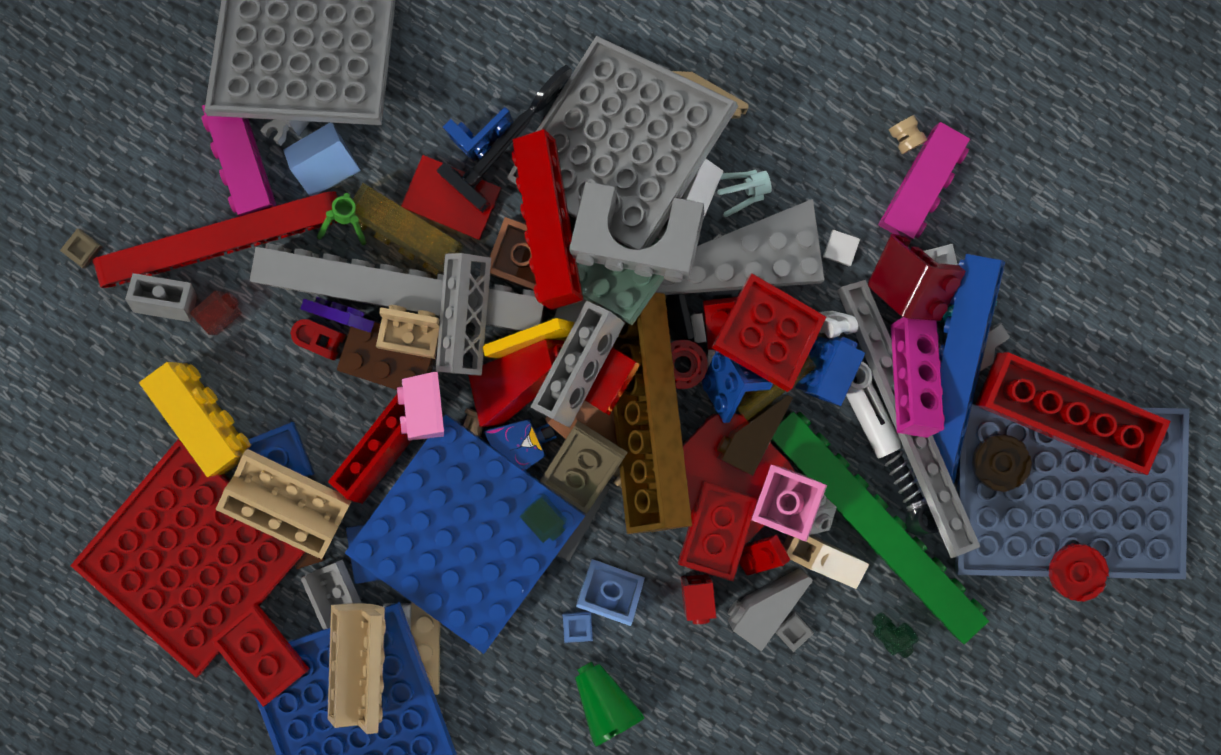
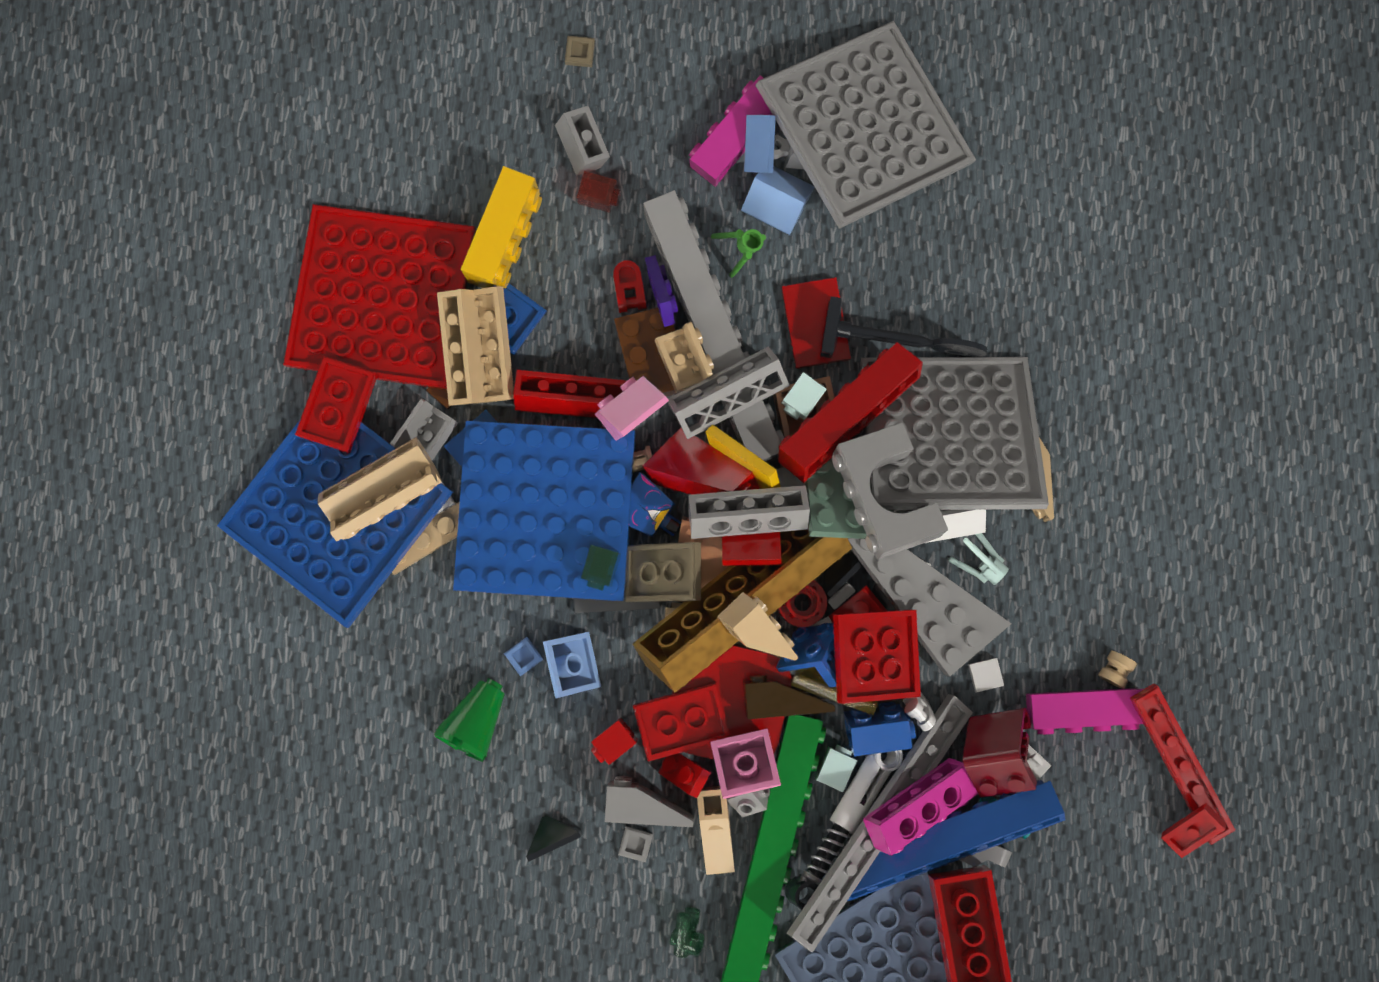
camera: 60 degrees right, 5 degrees down
(214, 240) = (657, 154): red beam -> none
(262, 145) = (759, 143): none -> medium blue tile
(403, 228) = (765, 300): clear yellow brick -> none
(478, 146) = (872, 317): blue bracket -> none
(508, 252) = (803, 397): none -> light aqua brick
(681, 424) = (752, 627): none -> tan slope
(742, 698) = (550, 836): none -> black slope
(838, 424) = (836, 767): none -> light aqua brick
(1001, 462) = (894, 930): dark brown tile -> none
(1020, 132) = (1178, 754): none -> red tile
(1081, 159) = (1194, 830): none -> red plate

